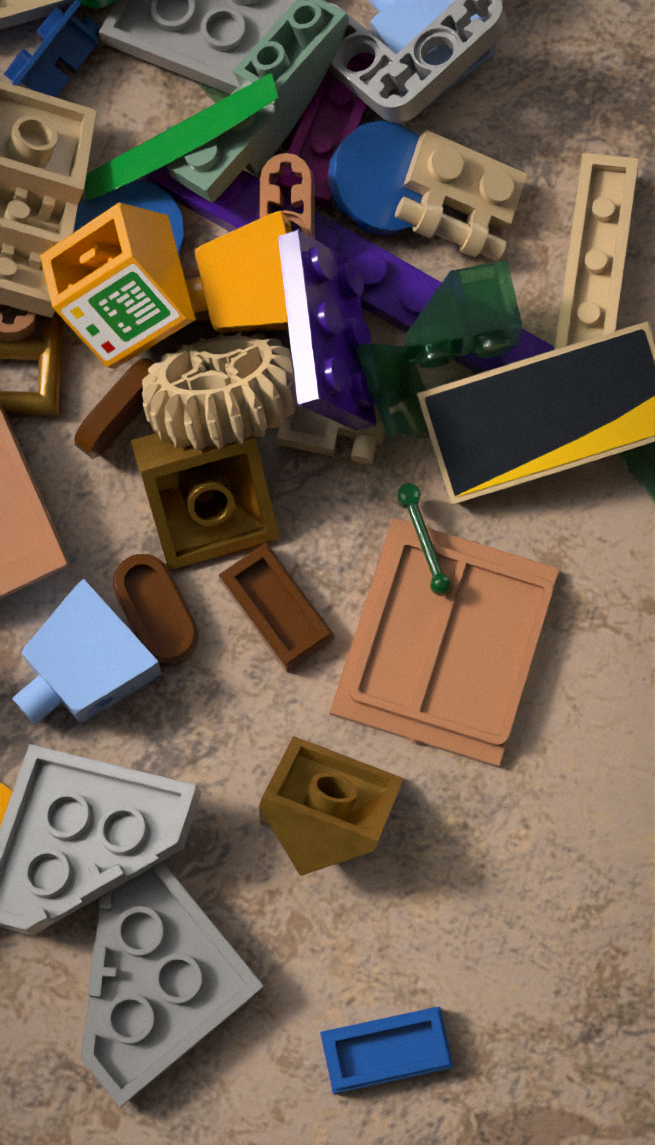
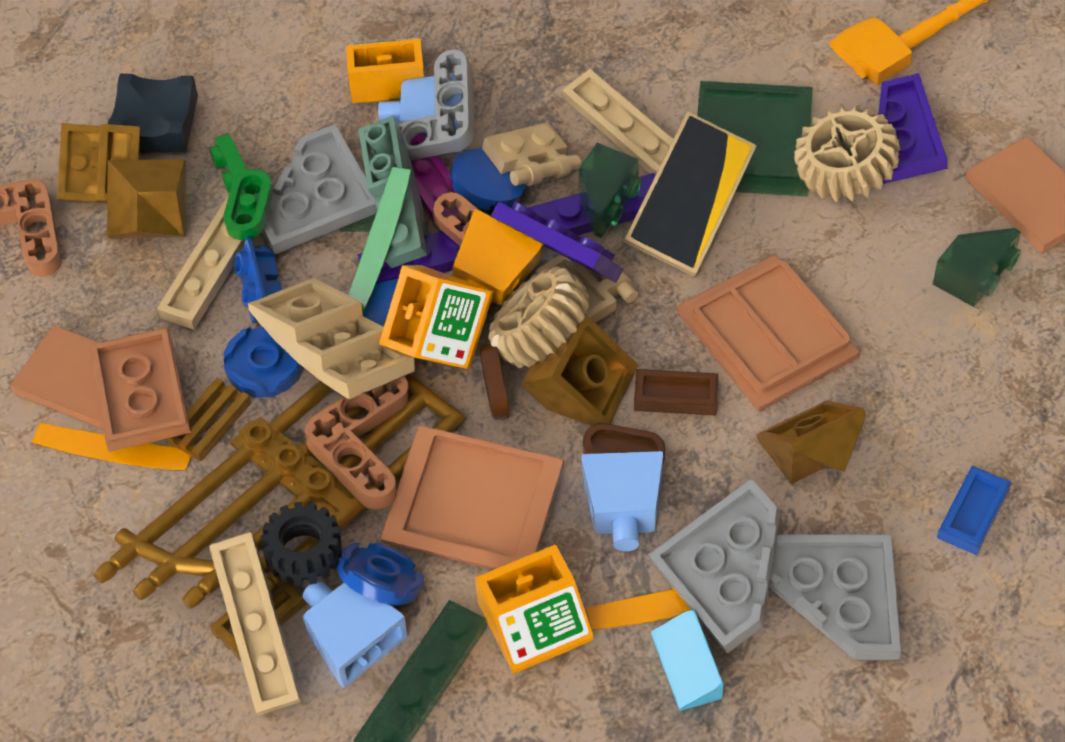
camera: 45 degrees left, 20 degrees down
(394, 389) = (617, 246): clear green piece -> none
(408, 497) = (674, 288): dark green hinge -> none

